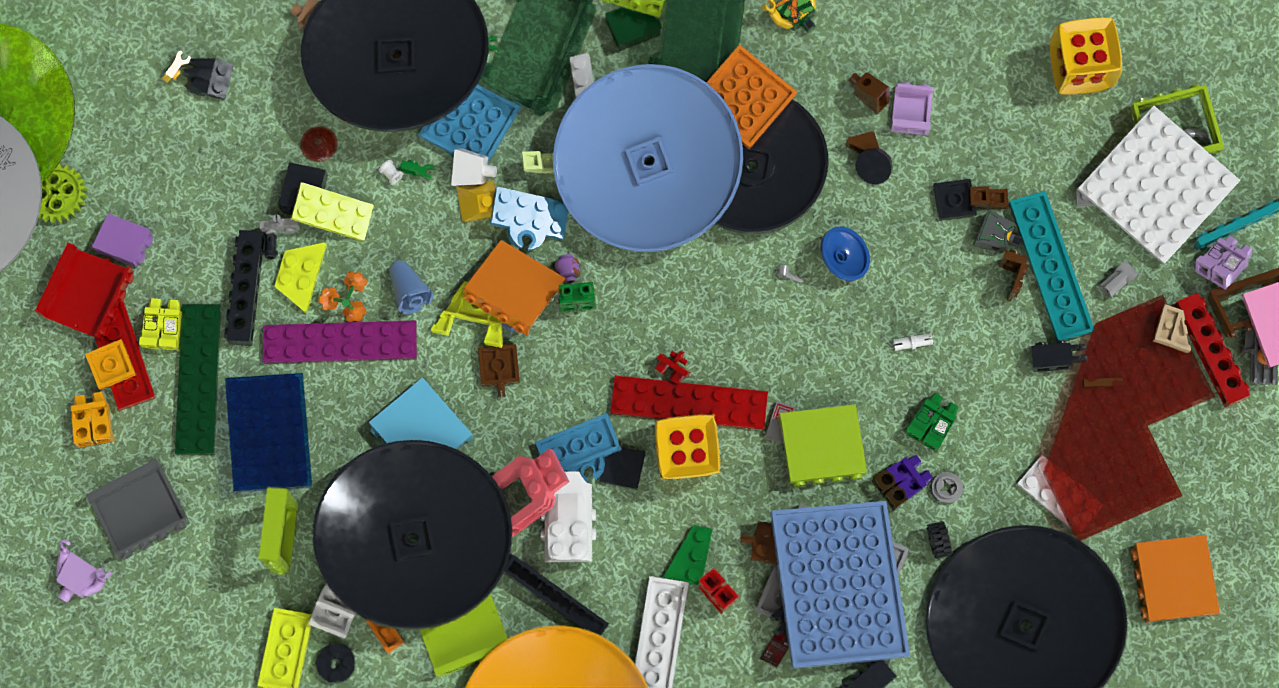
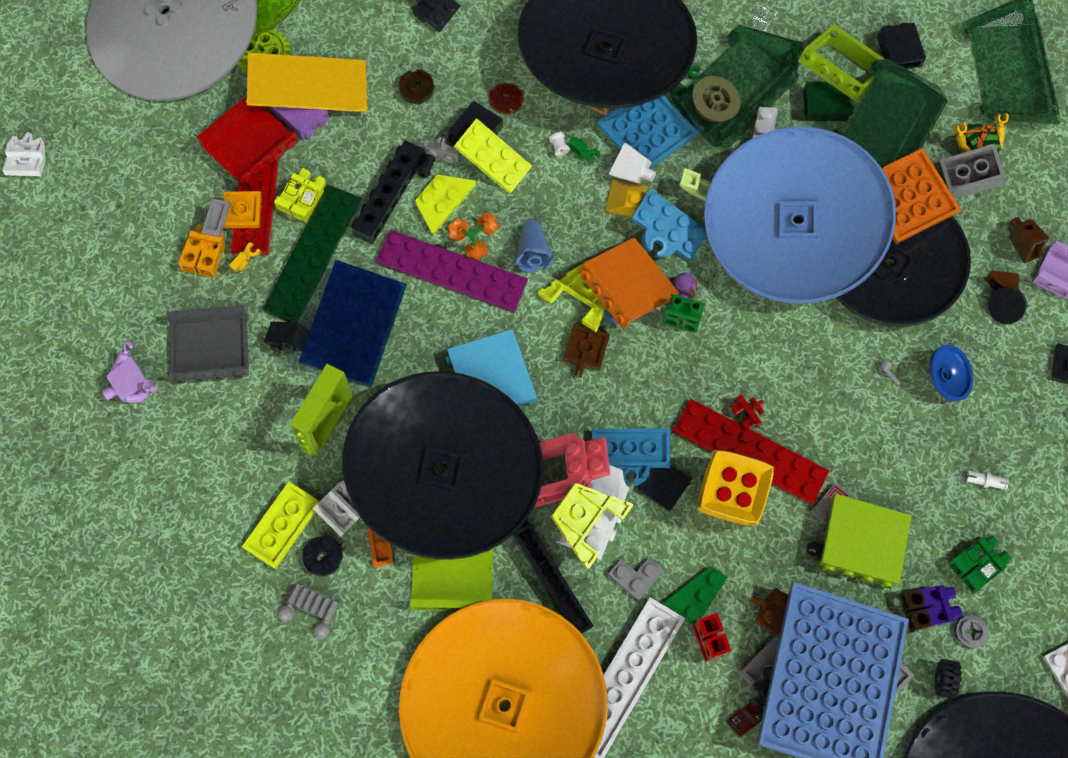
camera: 20 degrees right, 5 degrees down
(90, 383) = (216, 217): none -> light grey tile
(116, 209) = (306, 82): none -> yellow piece
(134, 415) = (242, 260): none -> yellow plate
(211, 472) = (286, 336): none -> black brick
(228, 178) = (412, 95): none -> dark brown plate
(525, 67) = (715, 99): none -> olive piece
(556, 527) = (579, 513): none -> neon yellow wing
(632, 567) = (636, 582): none -> light grey plate
(780, 470) = (814, 548): none -> black pin
(795, 45) = (973, 171): none -> light grey brick

